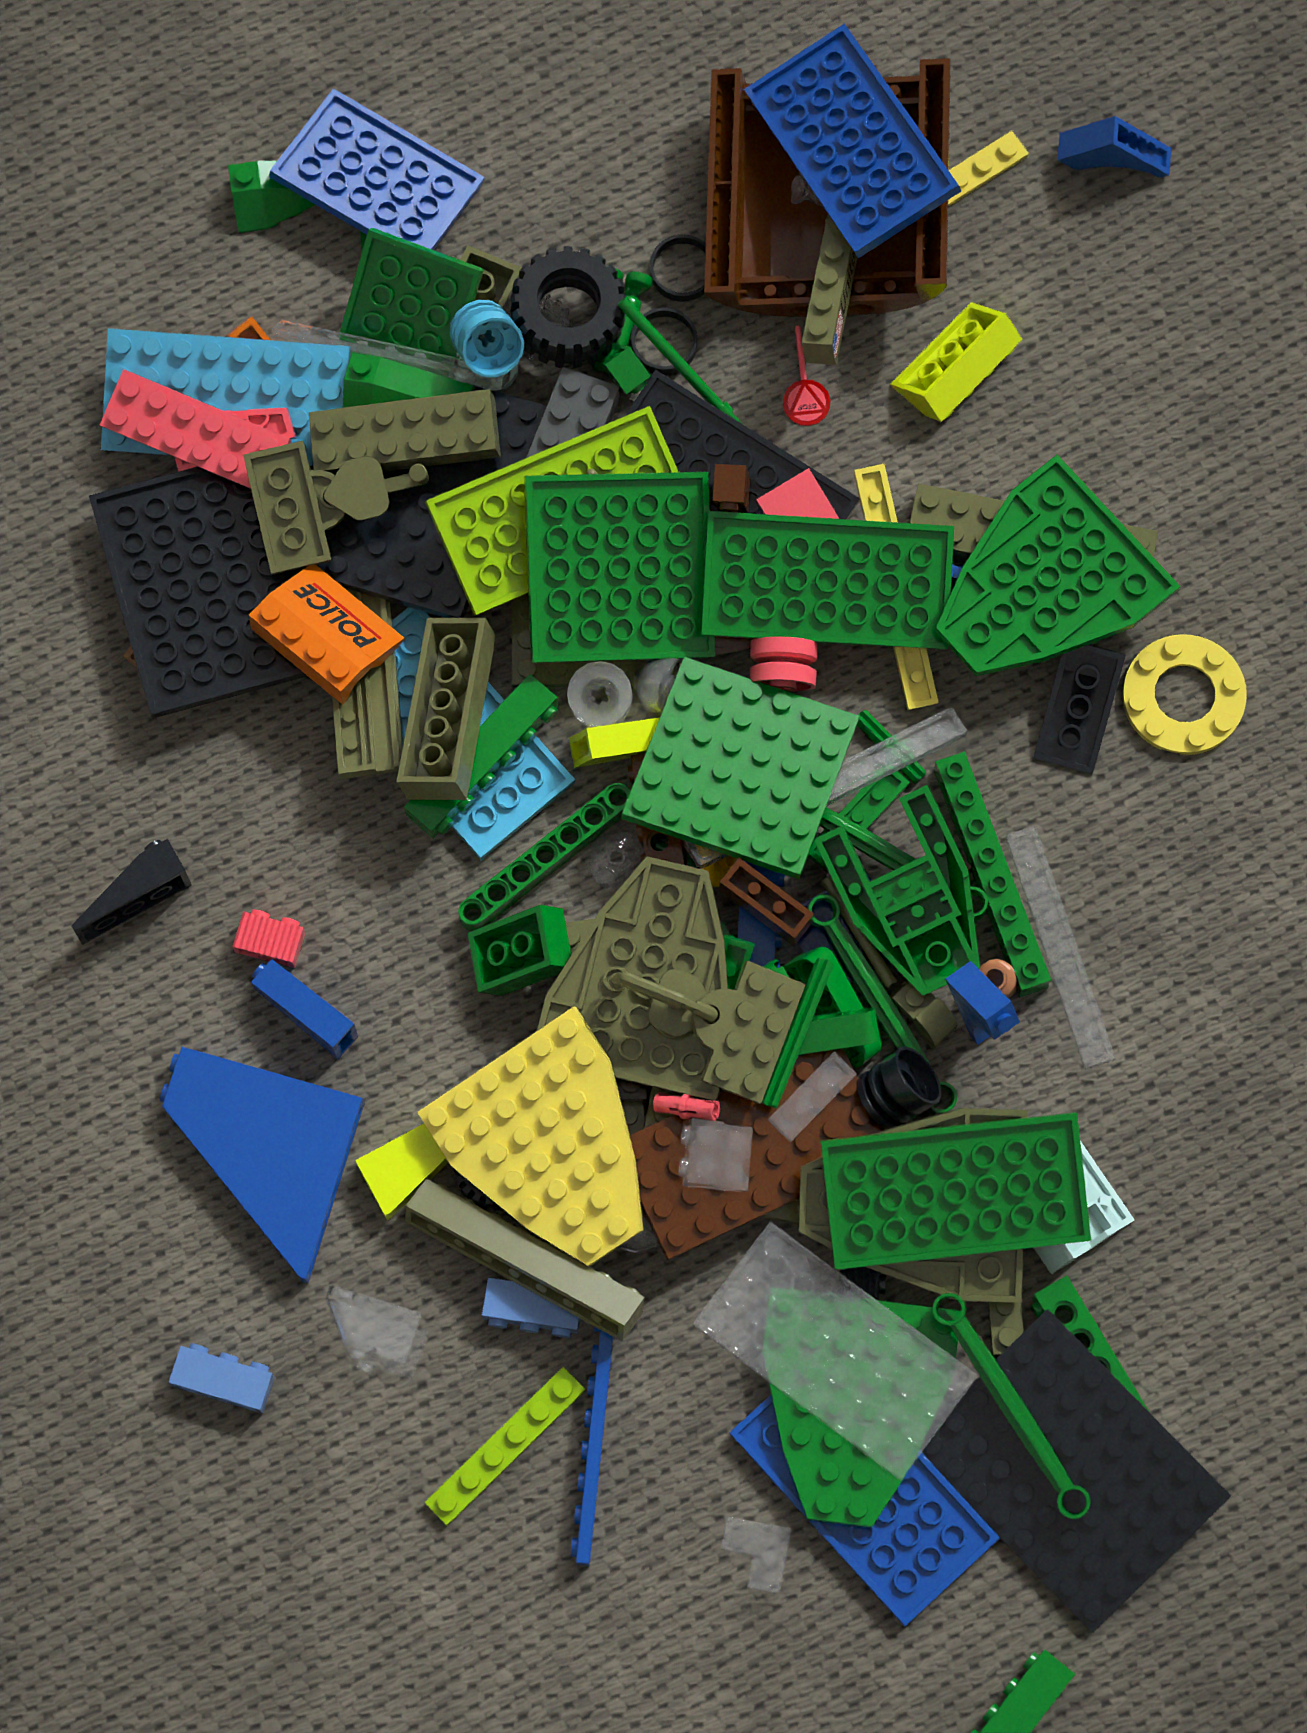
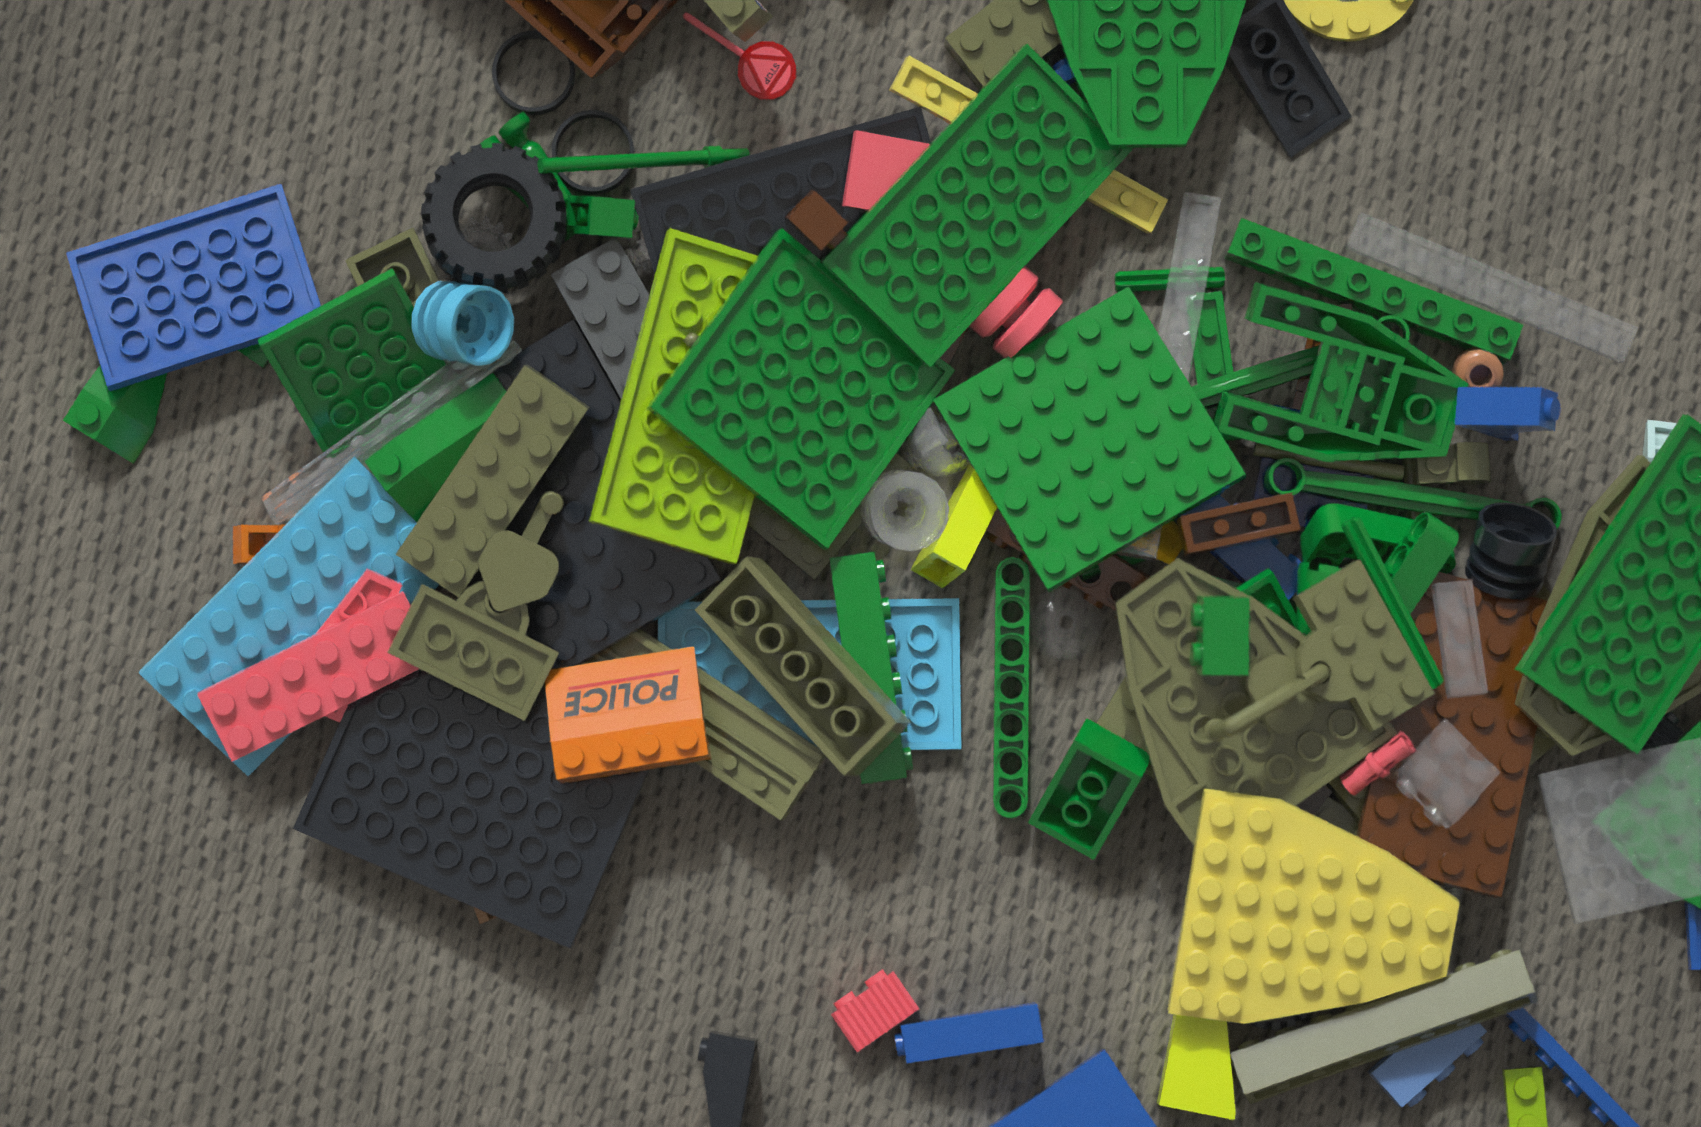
camera: 50 degrees left, 10 degrees up
(681, 933) = (1221, 635): none -> green brick

